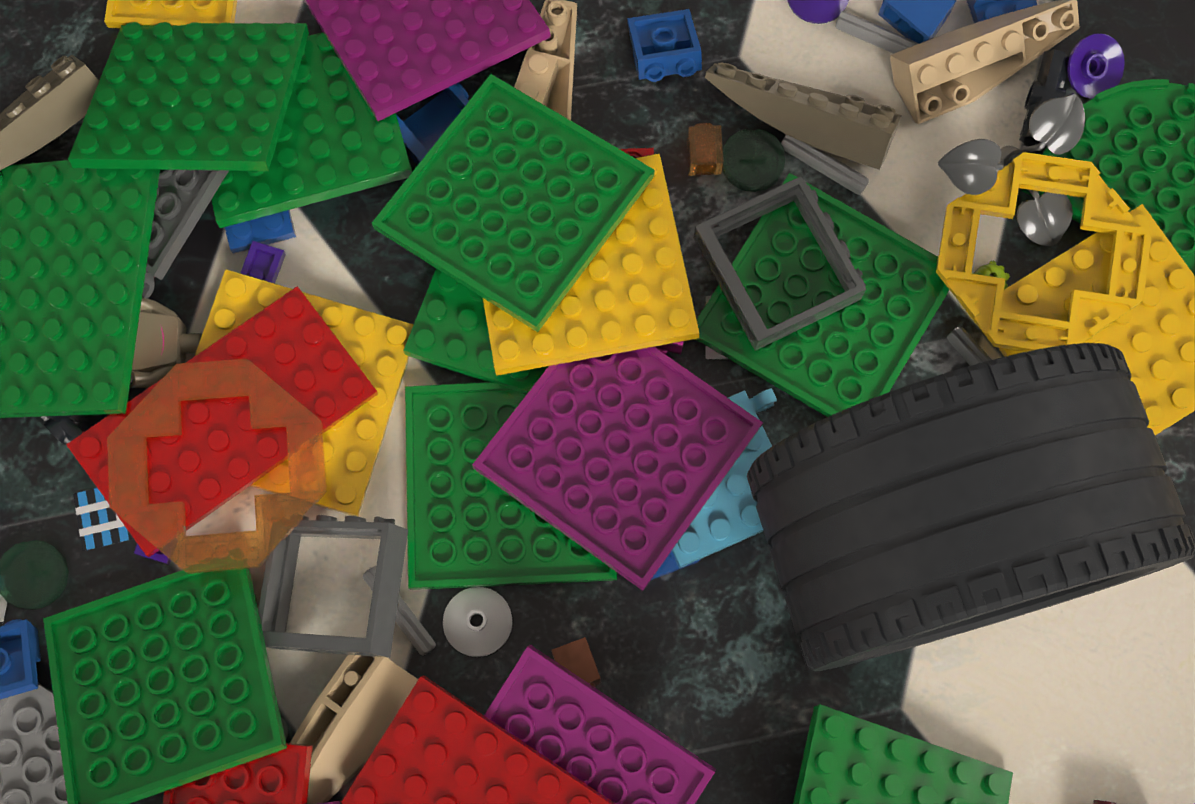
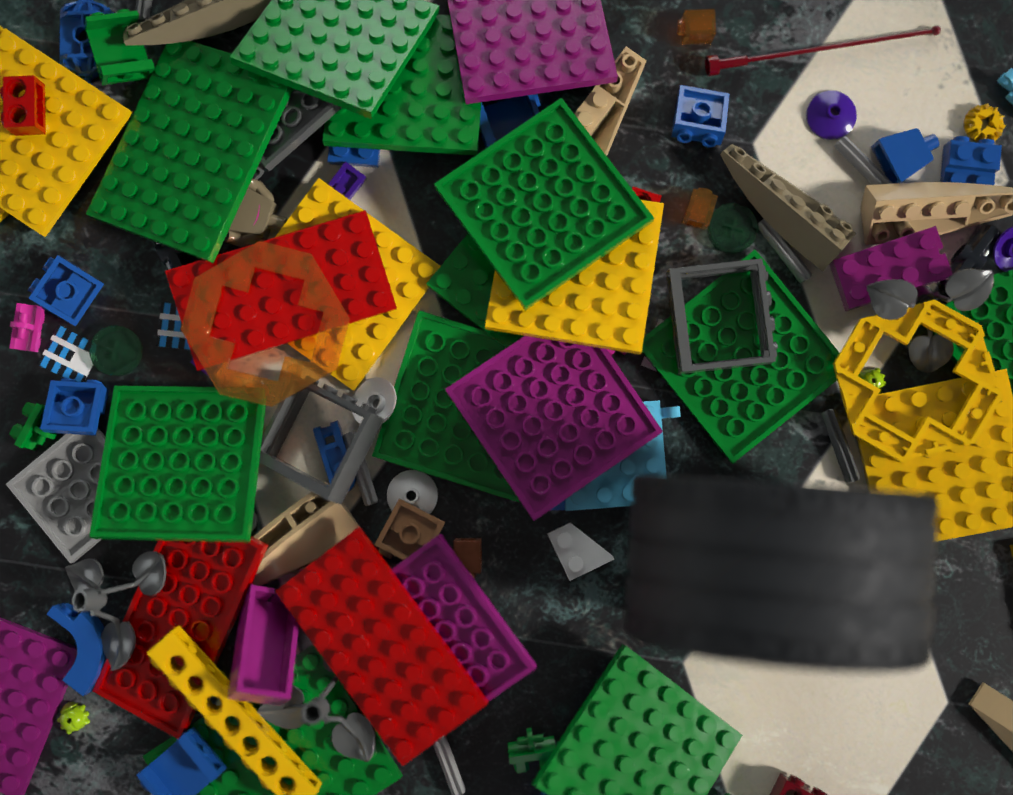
camera: 20 degrees right, 10 degrees up
(357, 601) = (332, 453): none -> blue plate
(390, 503) = (373, 392): none -> white dish
(485, 664) = (407, 531): none -> medium nougat plate
(713, 614) = (577, 551): none -> white wing
(972, 114) = (906, 258): none -> magenta piece

